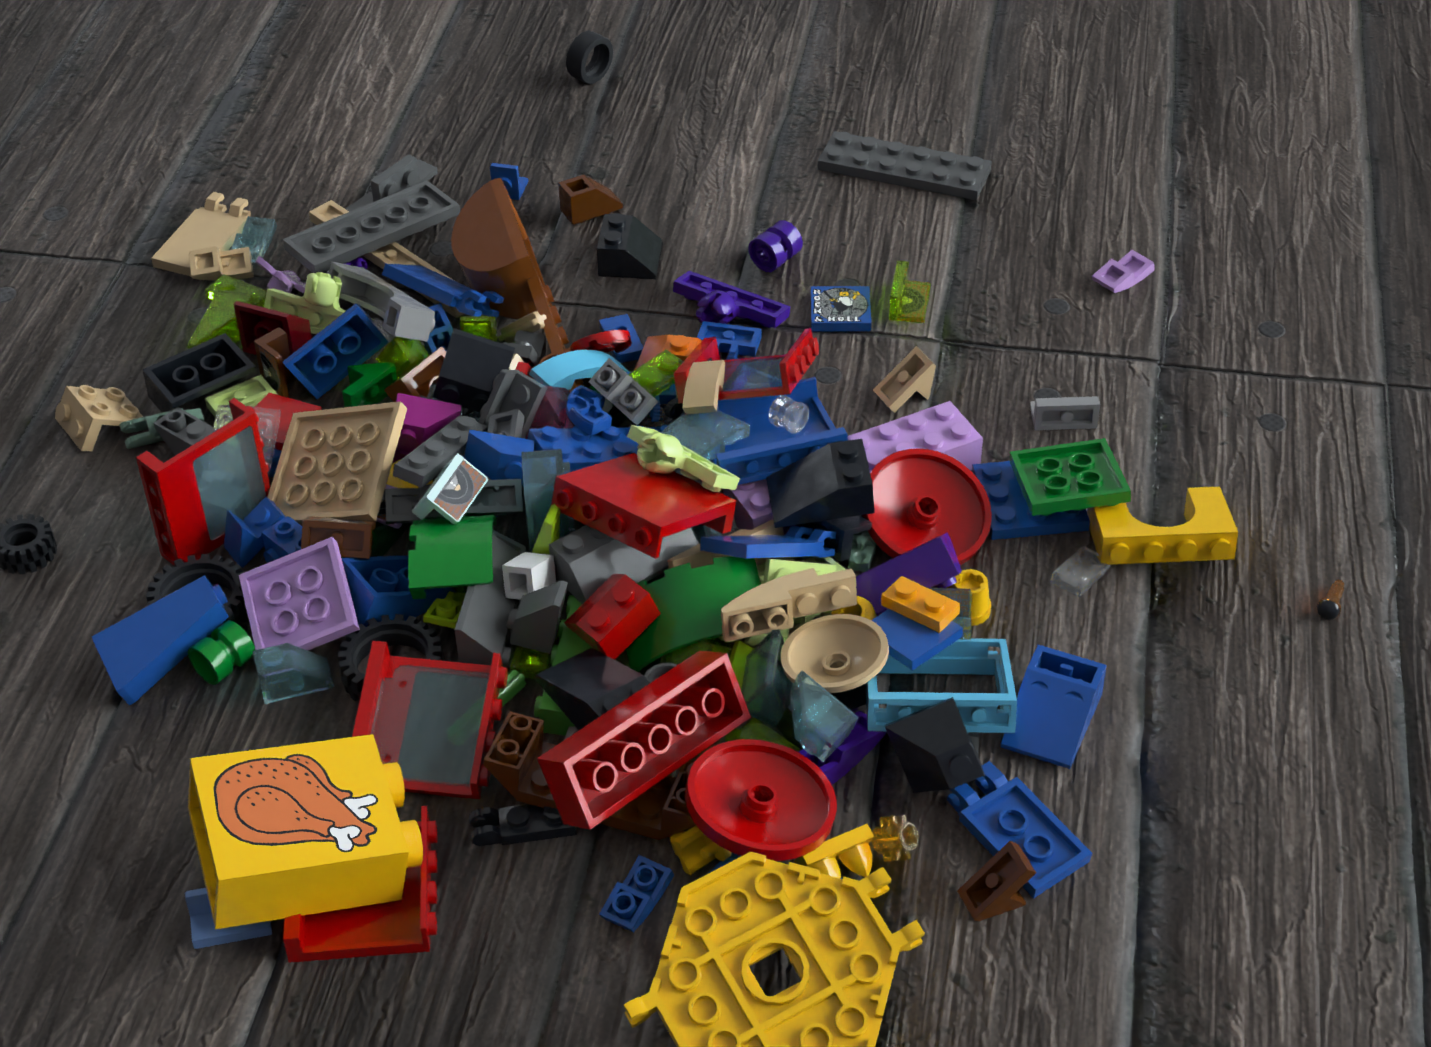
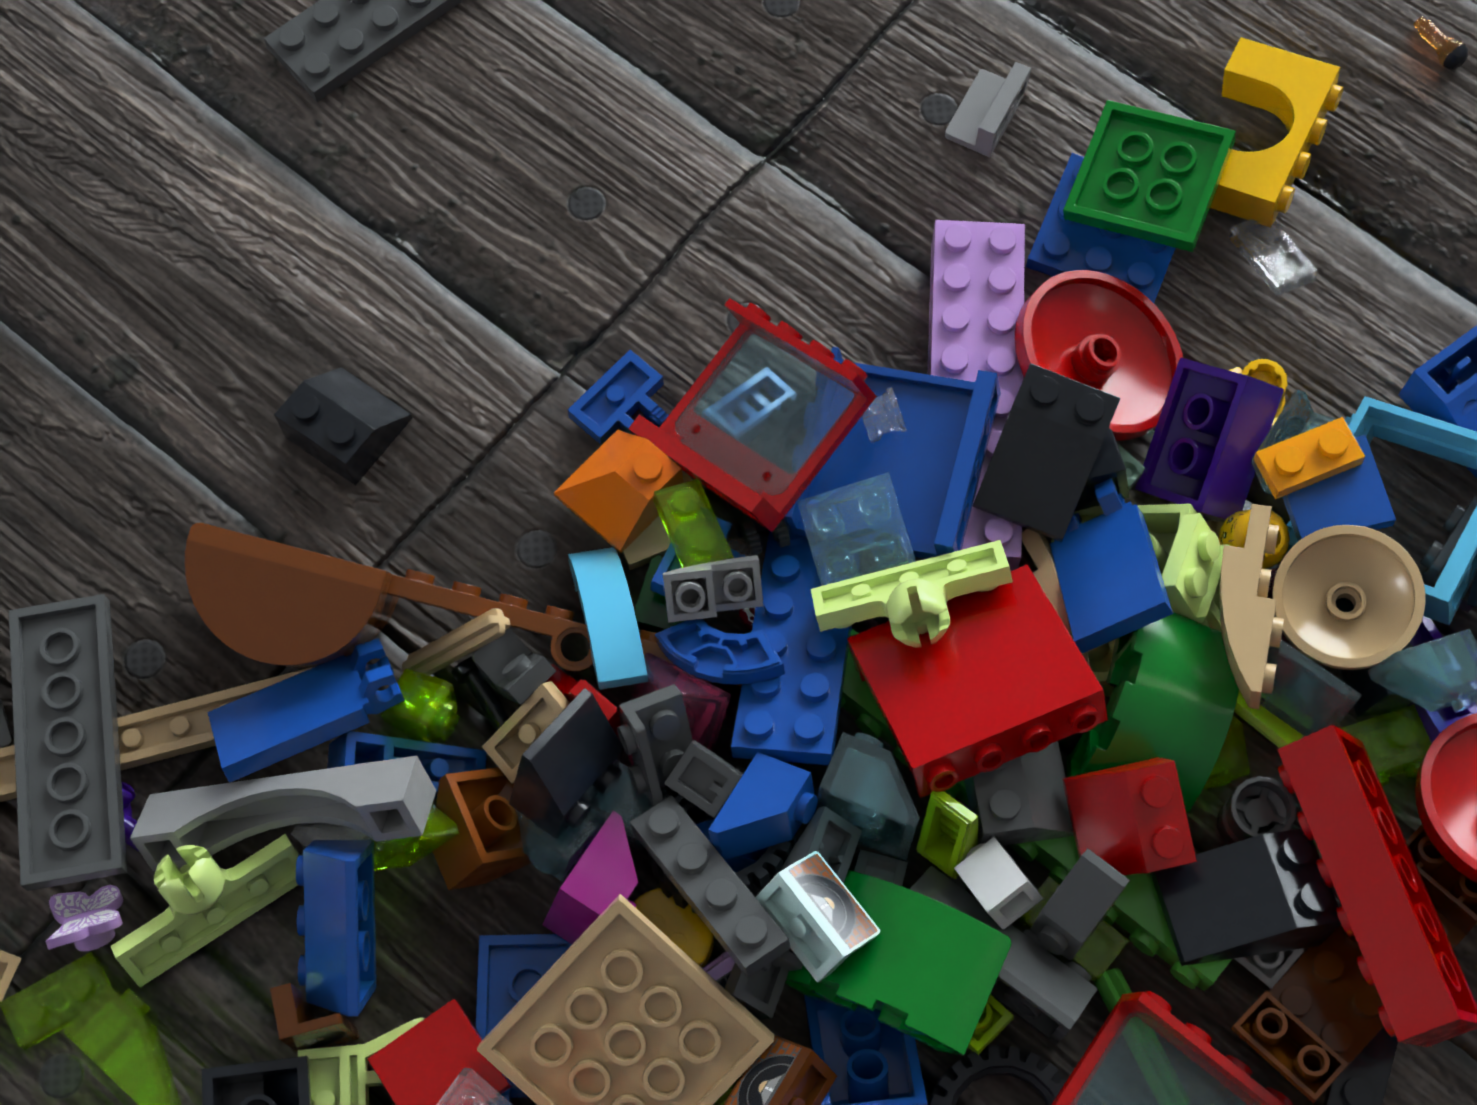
camera: 60 degrees left, 25 degrees up
(258, 321) = (209, 988): dark red slope -> none
(368, 383) = (412, 898): green slope -> none
(510, 176) = (73, 503): blue bracket -> none
(586, 199) = (199, 418): reddish brown slope -> none
(604, 341) = (557, 561): red tile -> none
(623, 322) = (520, 524): blue plate -> none
(703, 387) = (788, 487): tan slope -> none
(724, 302) = (541, 358): dark purple plate -> none
(775, 246) = (471, 241): dark purple wheel -> none
(840, 308) = (635, 235): tile -> none
(908, 297) = (665, 148): clear neon green panel -> none
(910, 375) = (845, 243): tan slope -> none

